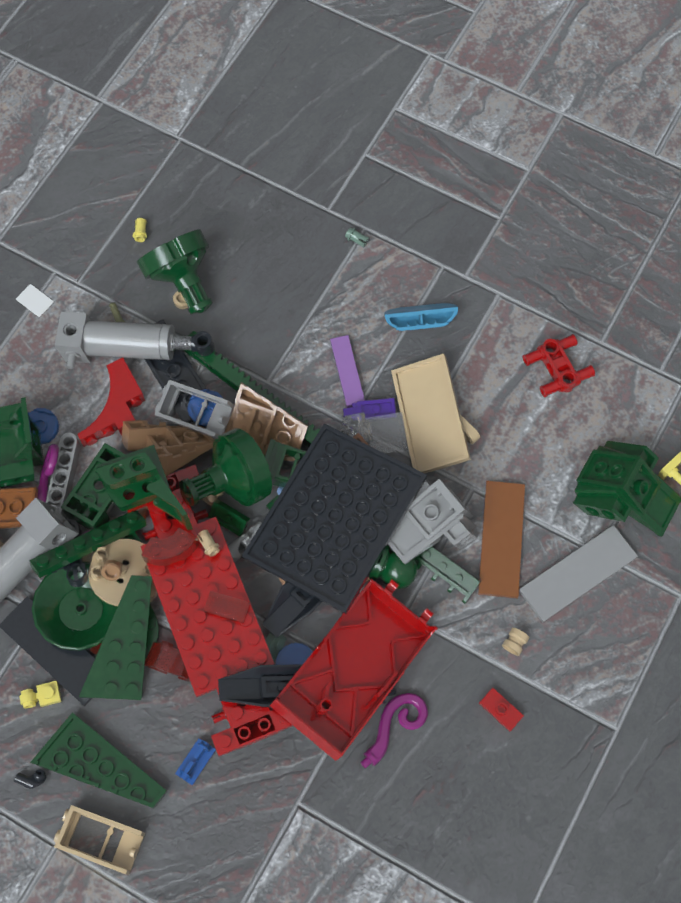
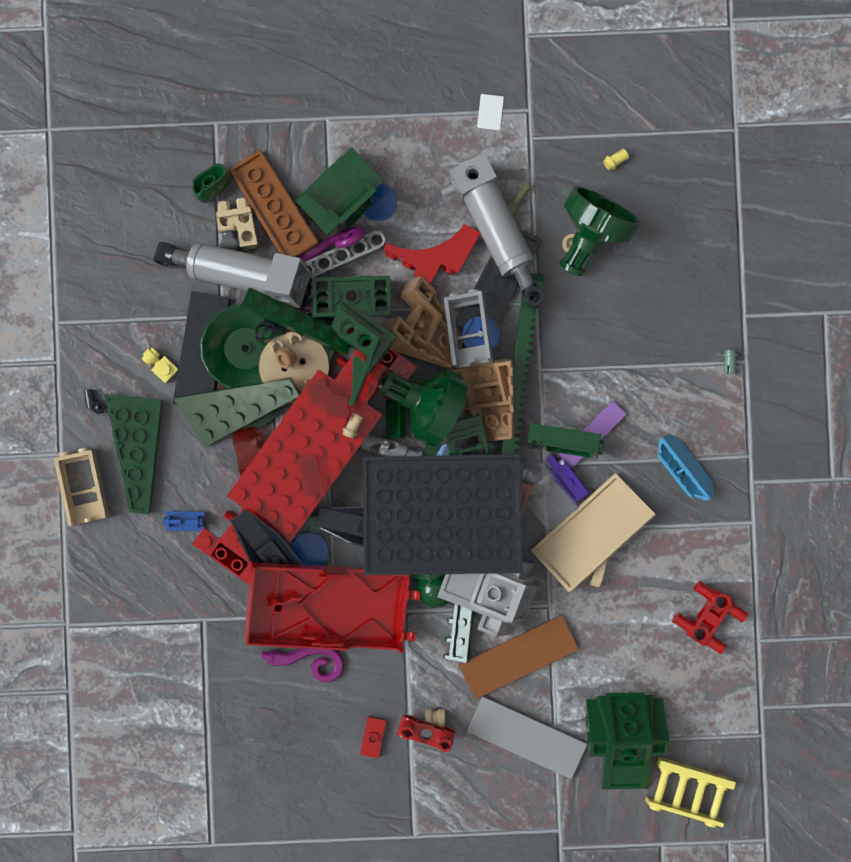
camera: 55 degrees right, 20 degrees up
(338, 387) = (565, 441): none -> dark green door
(533, 640) = (411, 728): none -> red piece

